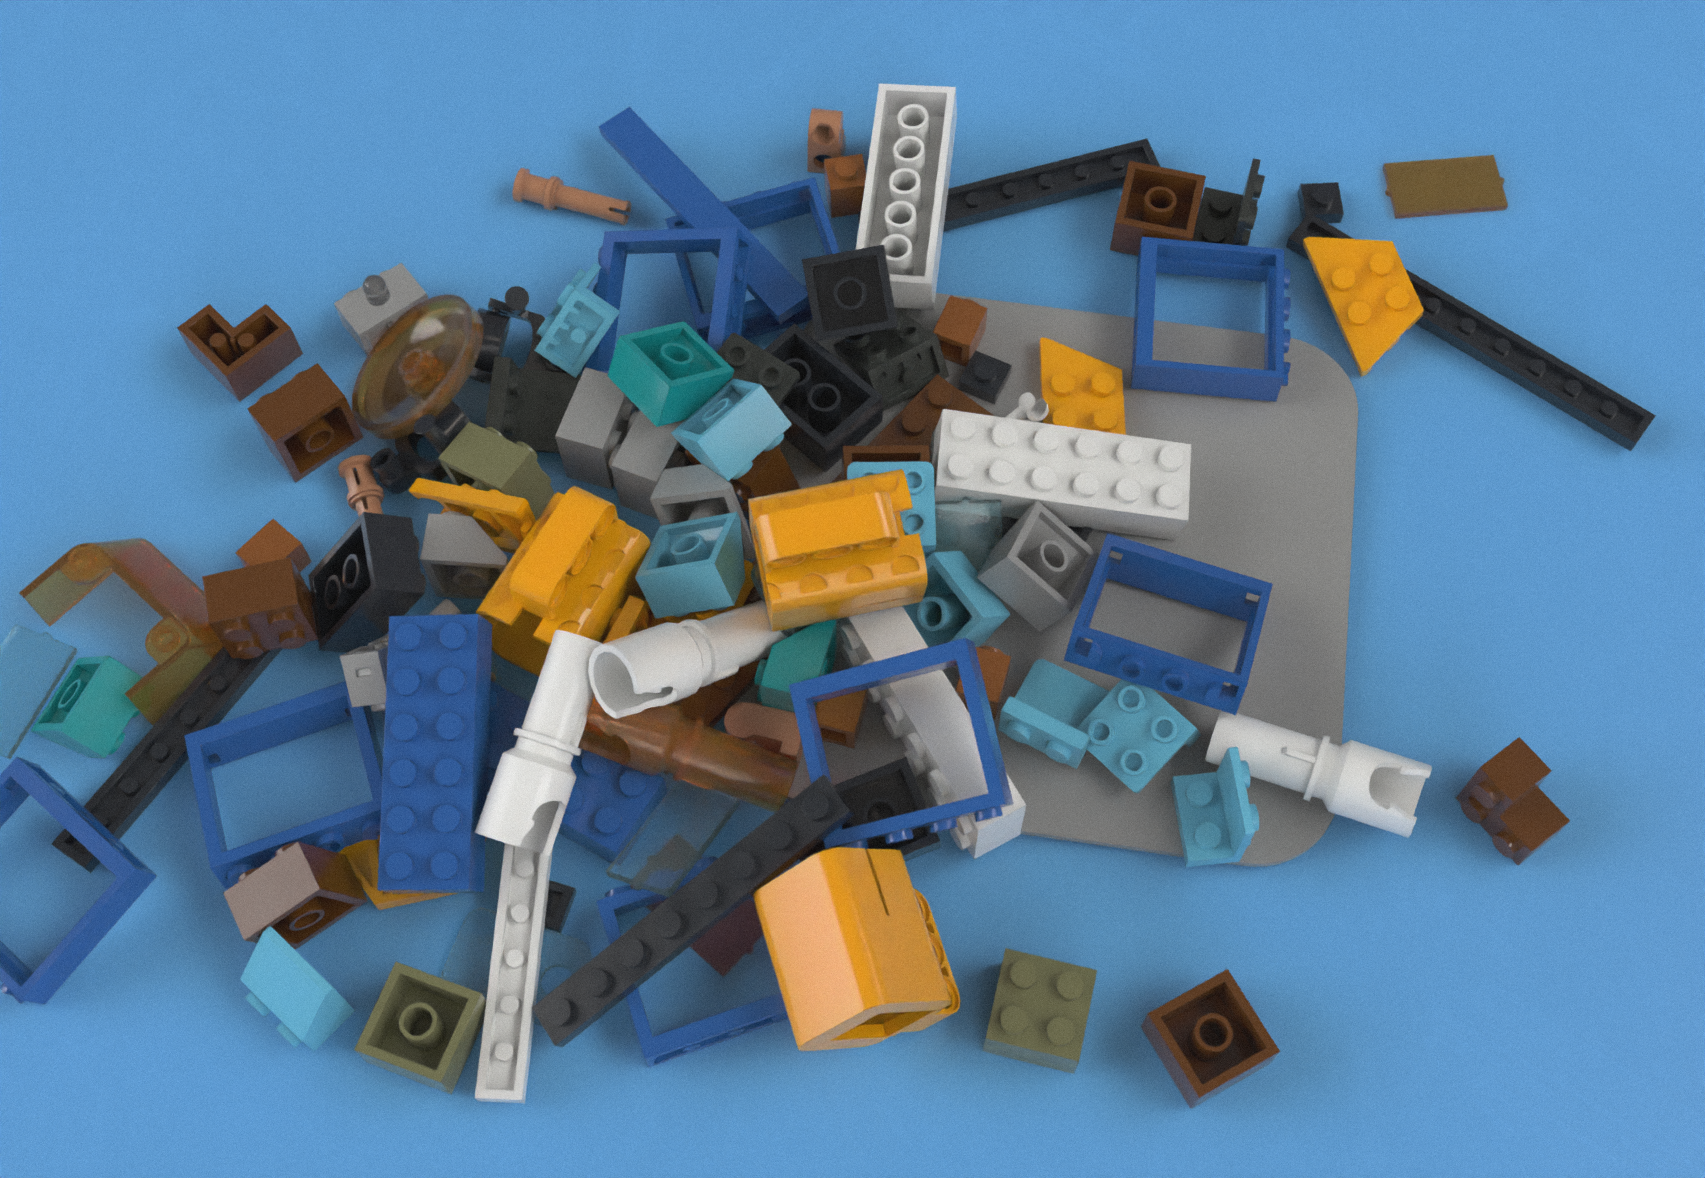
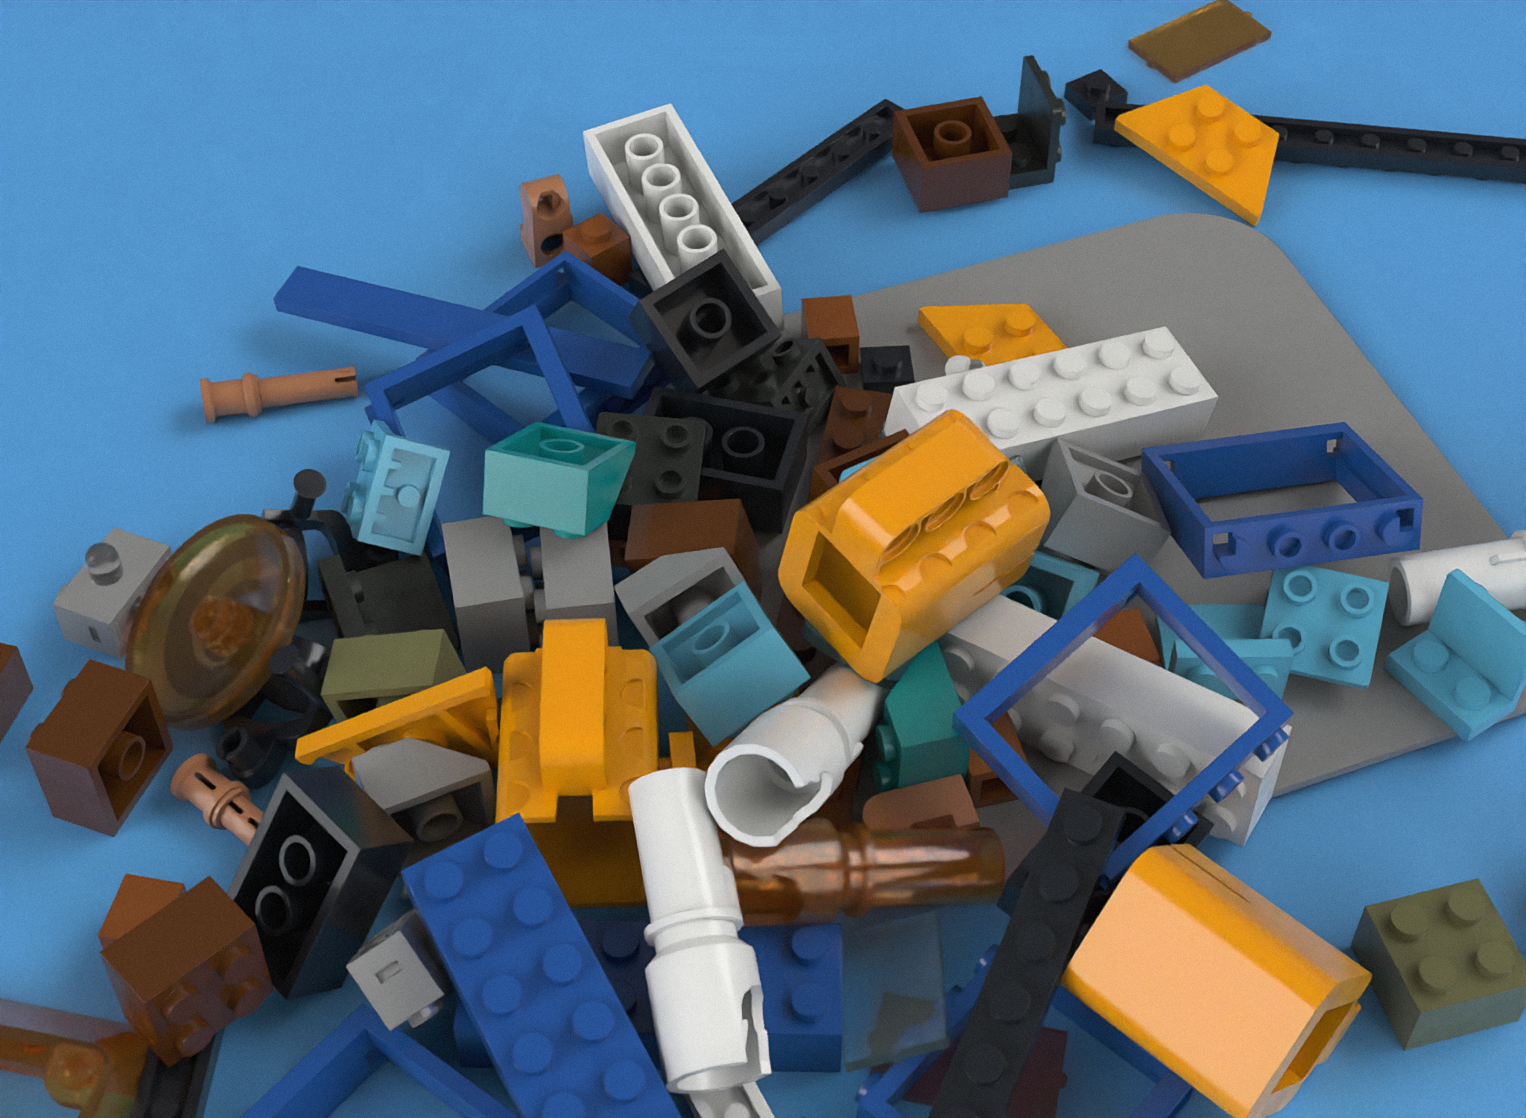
camera: 30 degrees left, 15 degrees down
(733, 428) = (678, 495): medium azure slope -> none
(1213, 261) = (990, 189): blue window -> none

